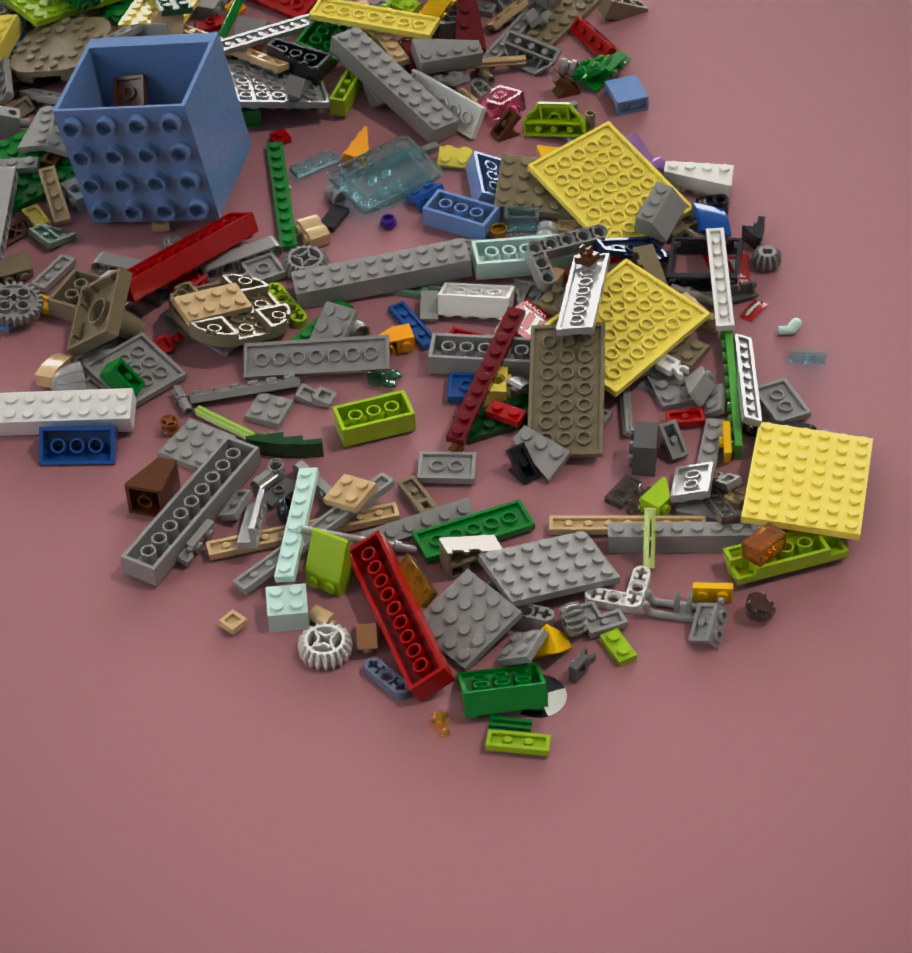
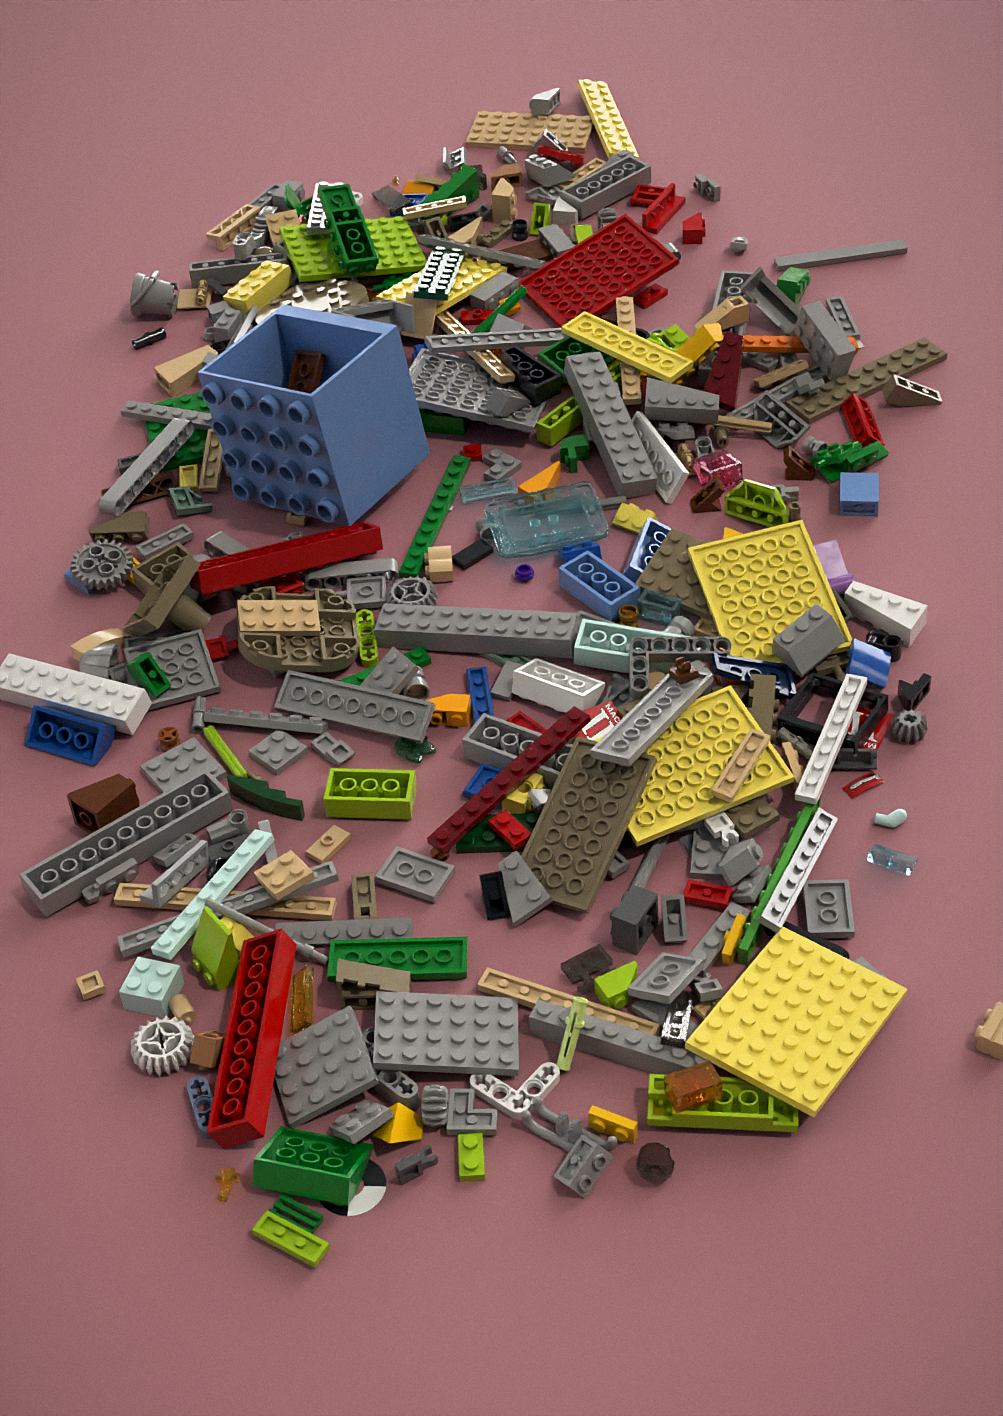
camera: 25 degrees right, 0 degrees up
(313, 141) = (501, 465): none -> light grey plate
(361, 464) = (328, 844): none -> tan plate
(370, 115) = (574, 449): none -> green brick
(668, 314) = (740, 765): none -> tan plate

